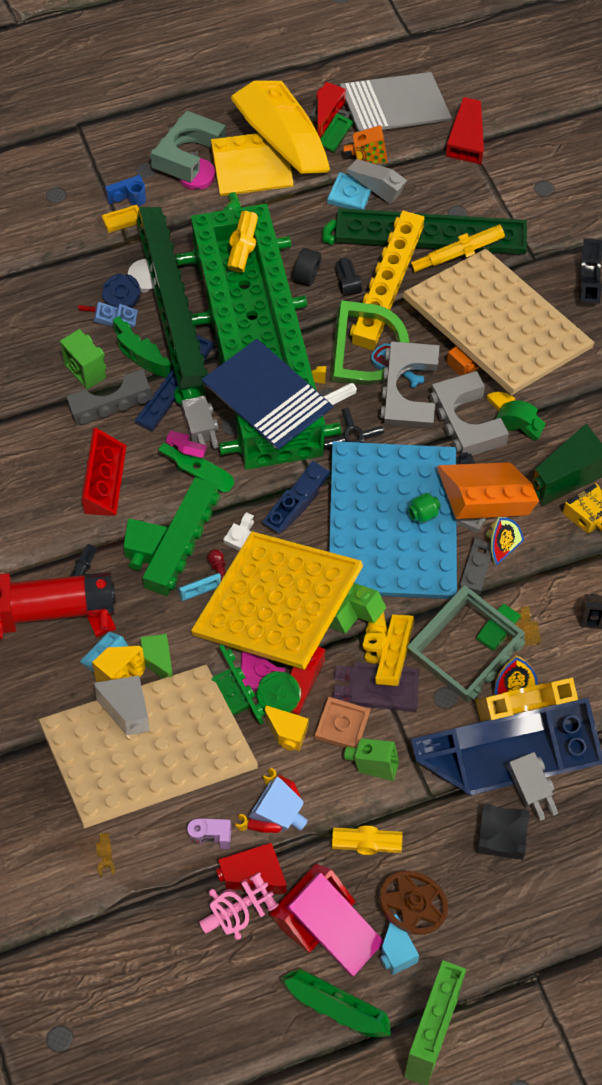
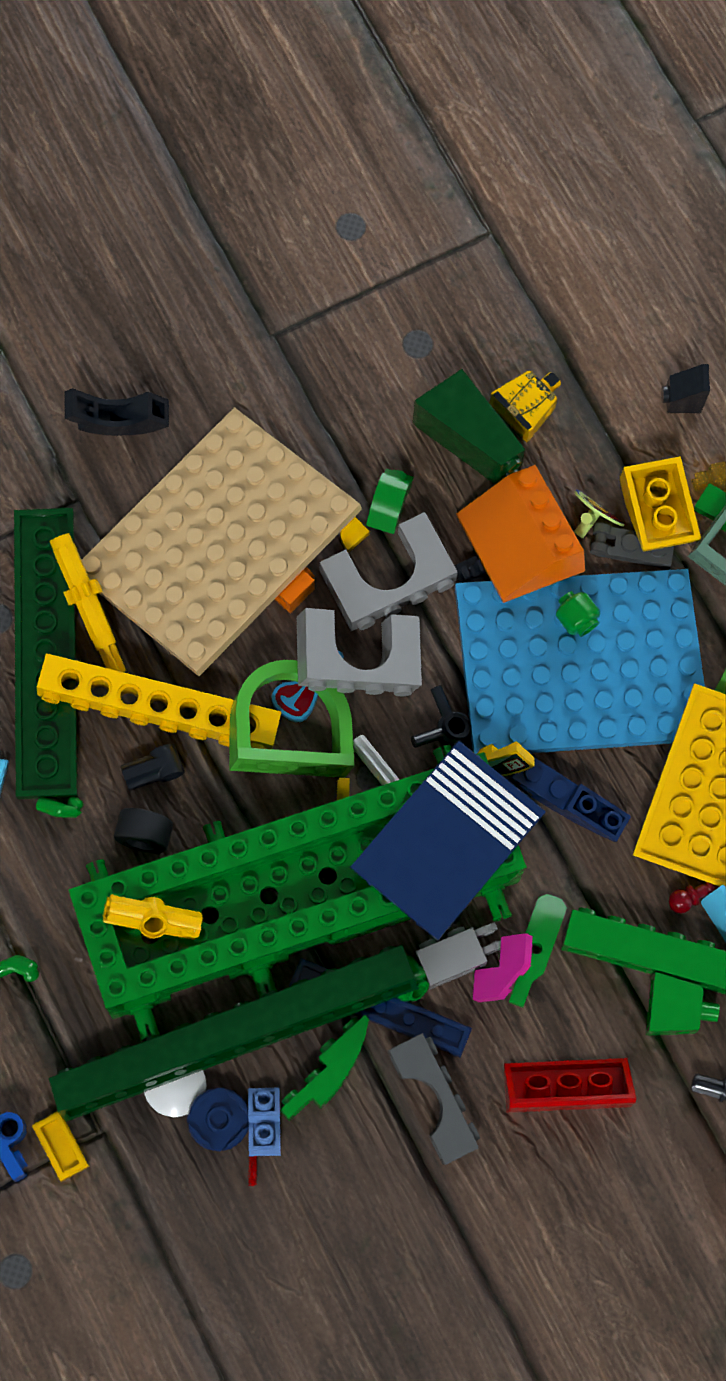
camera: 100 degrees left, 15 degrees up
(83, 359) = (372, 1149): bright green brick -> none
(238, 534) = (636, 873): white plate -> none
(326, 454) = (508, 759): none -> slope
(505, 576) = (659, 503): none -> yellow slope

